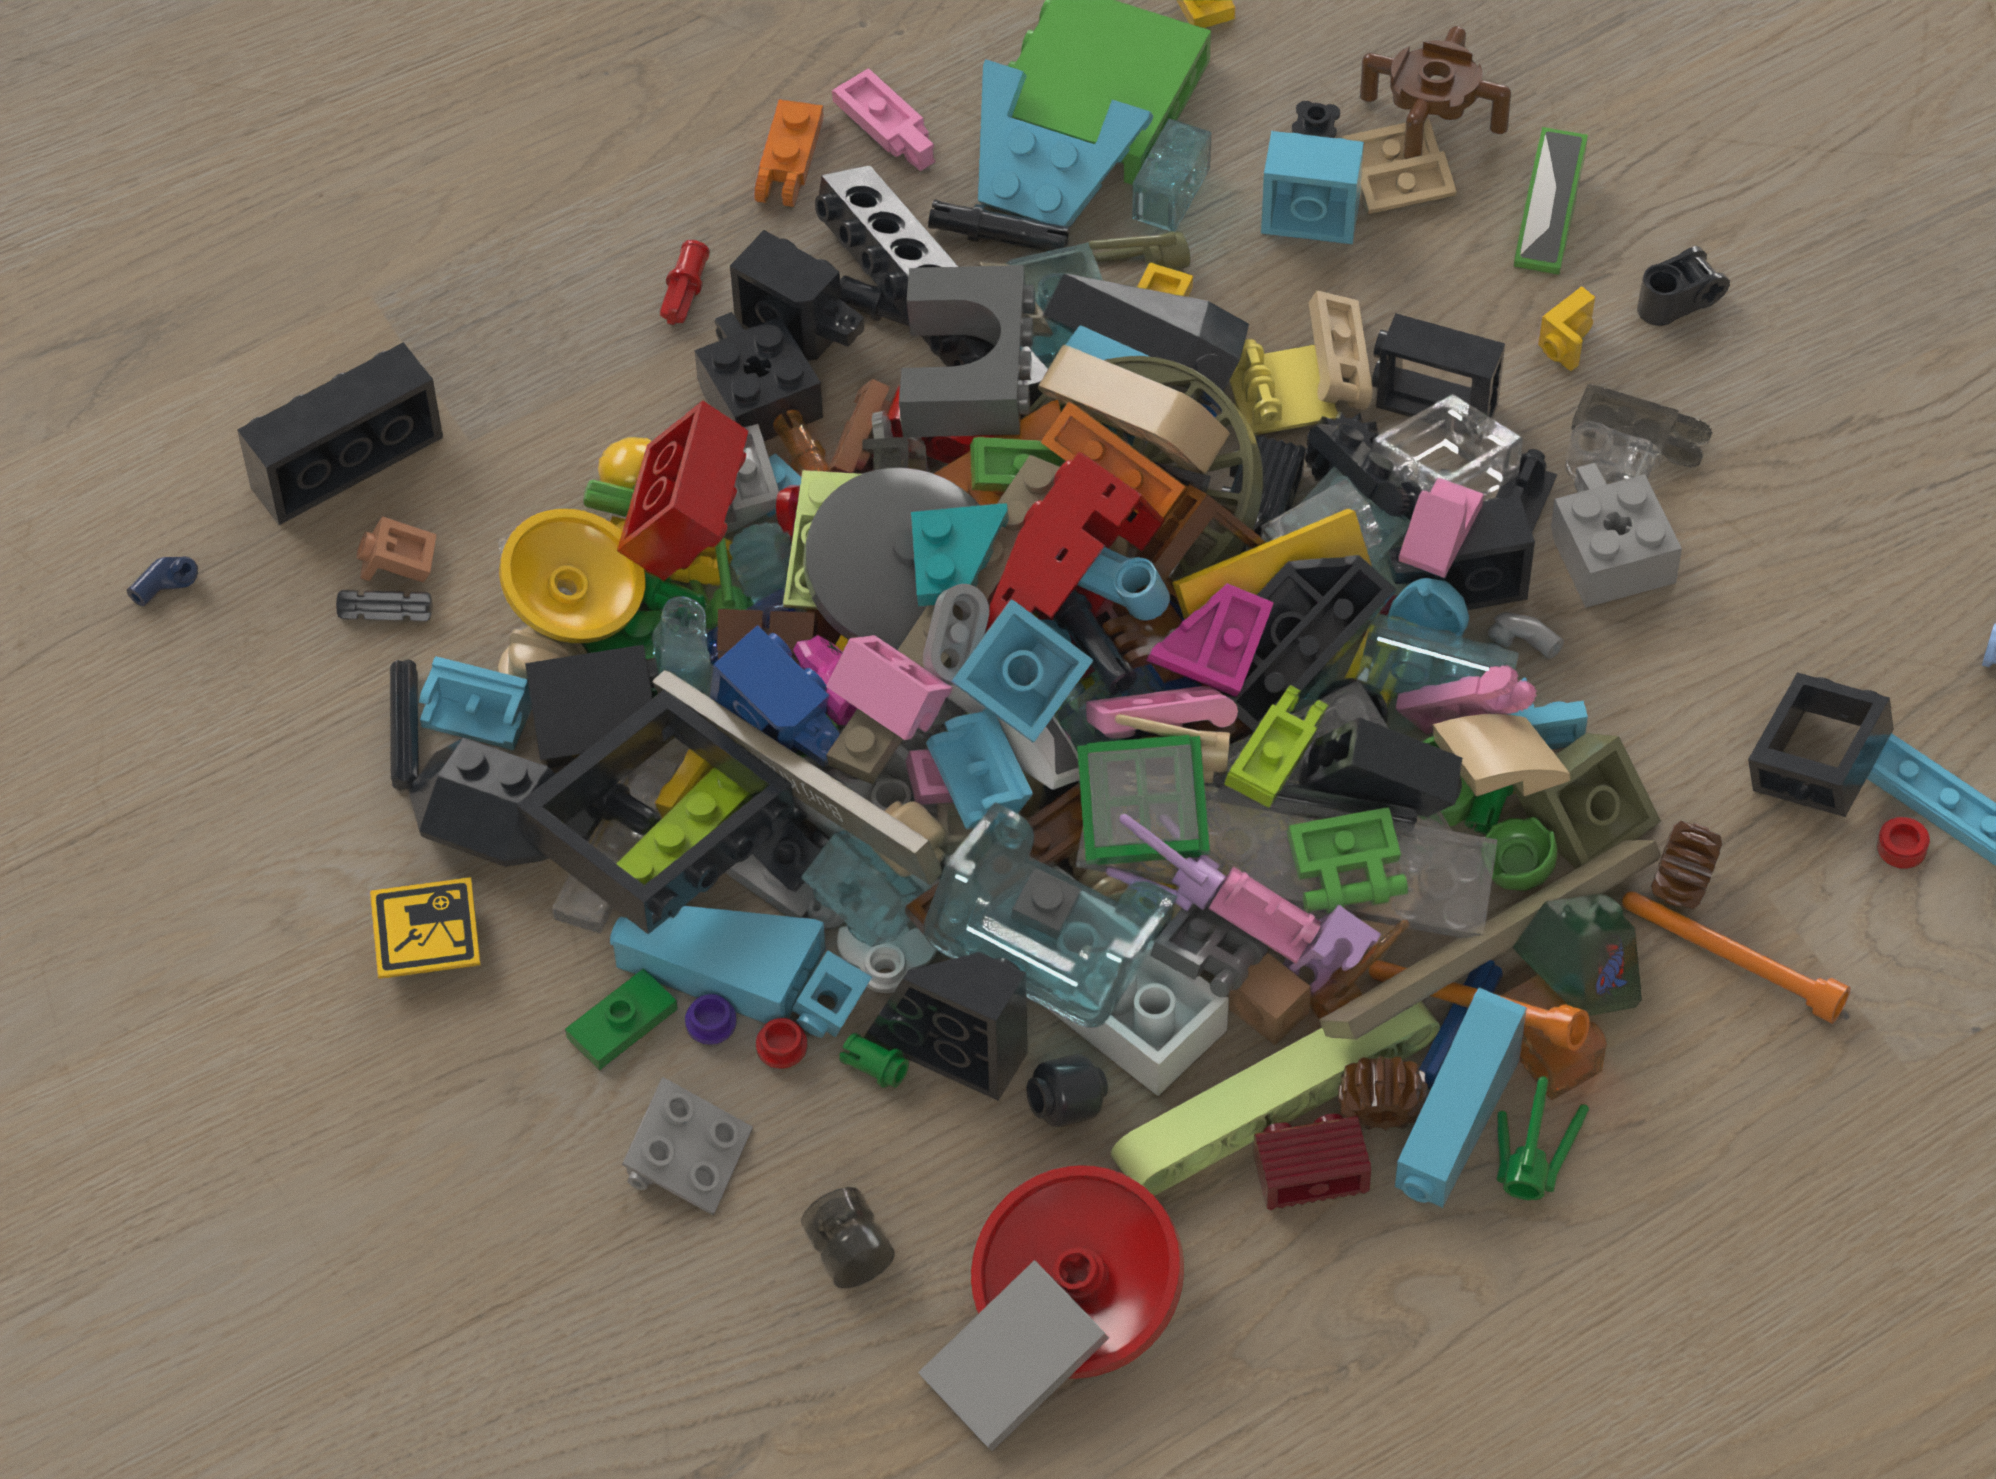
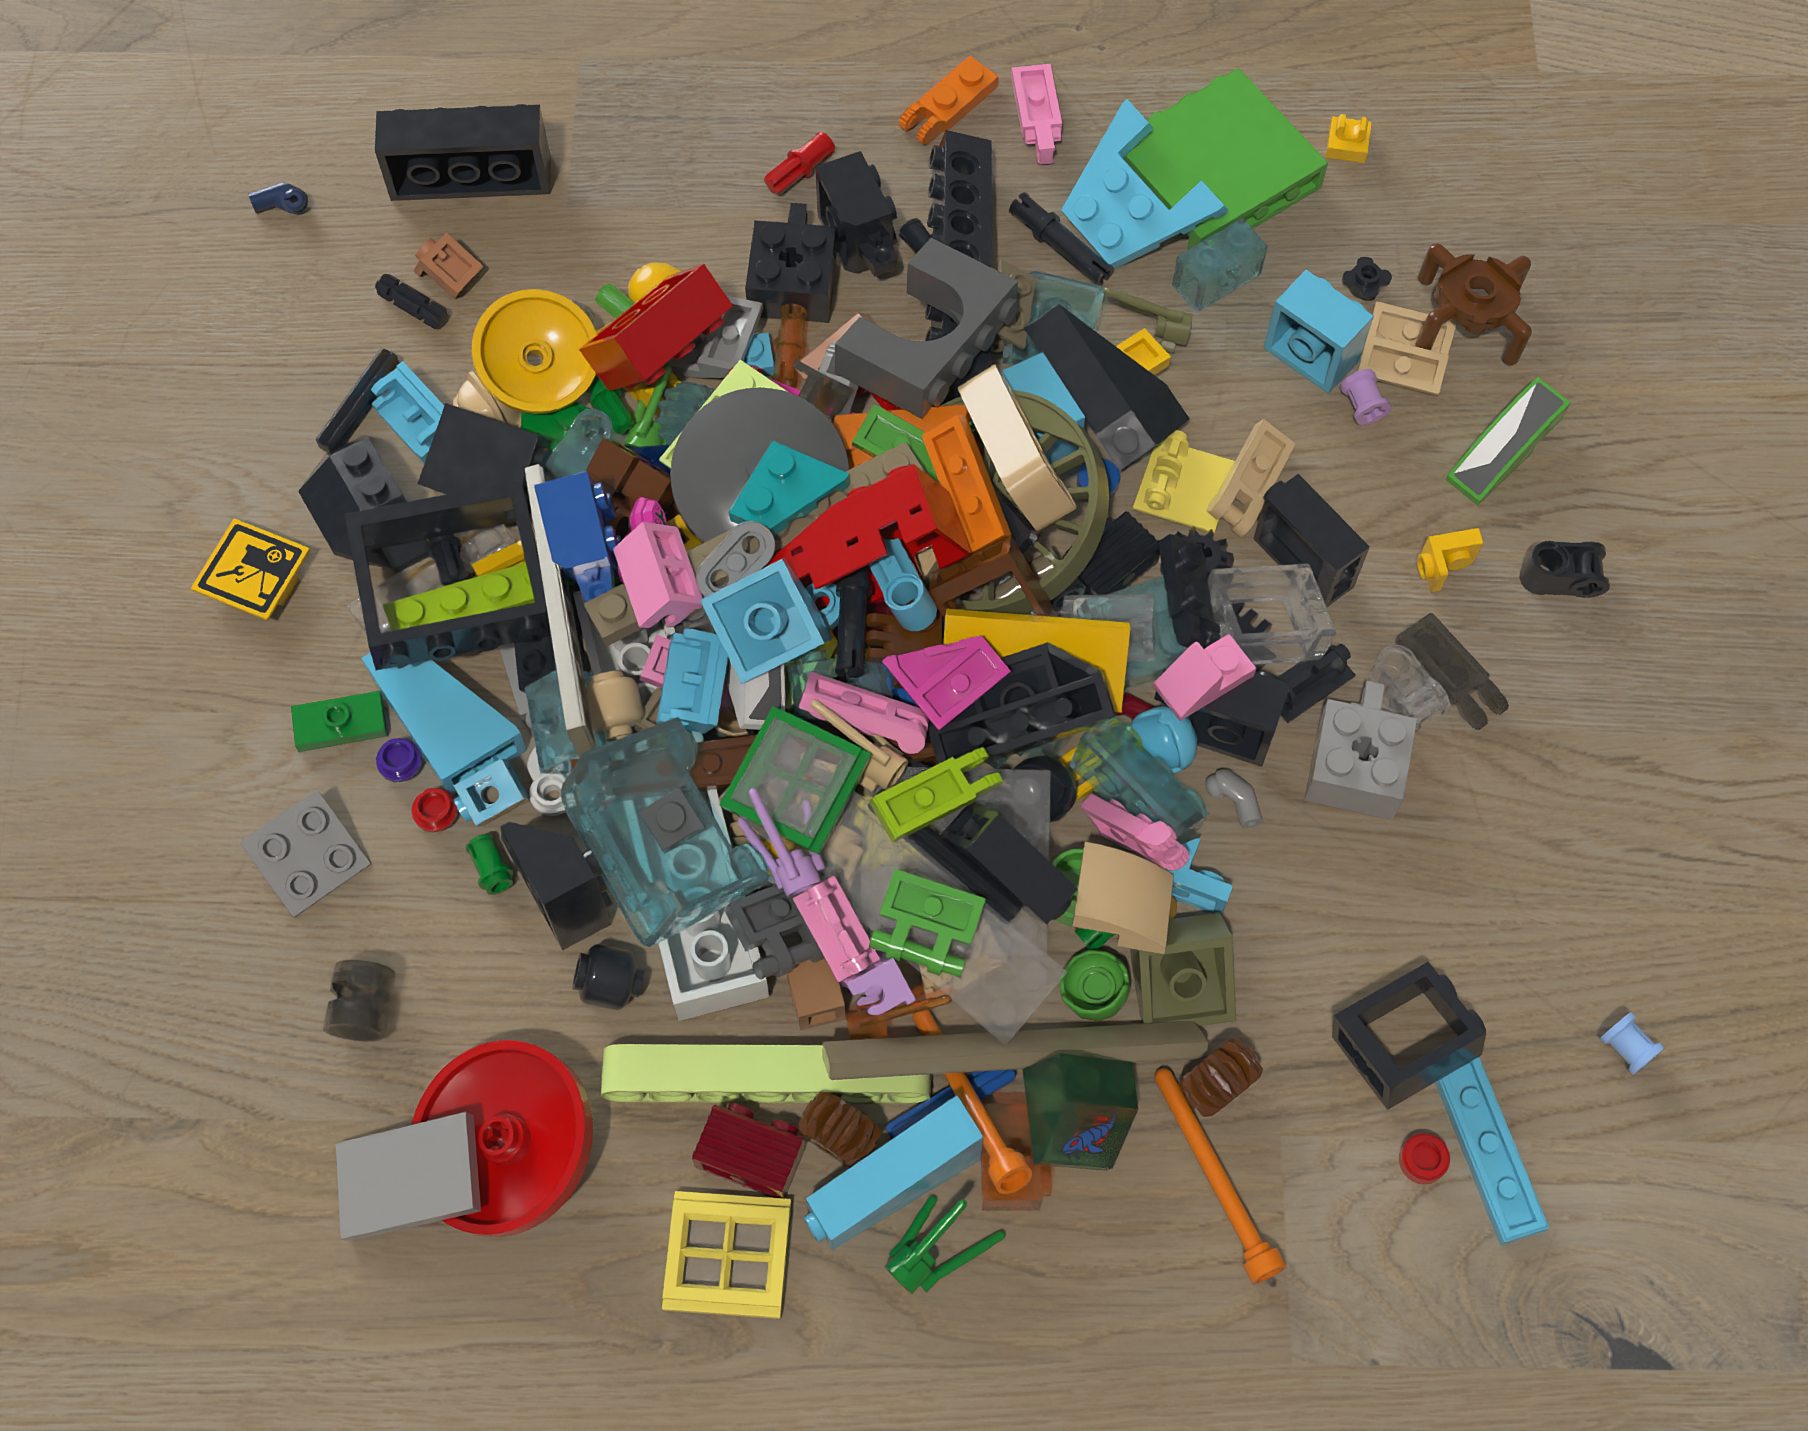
camera: 30 degrees right, 10 degrees up
(1353, 1259) = (727, 1255): none -> light yellow piece
(1392, 227) = (1365, 397): none -> lavender bush

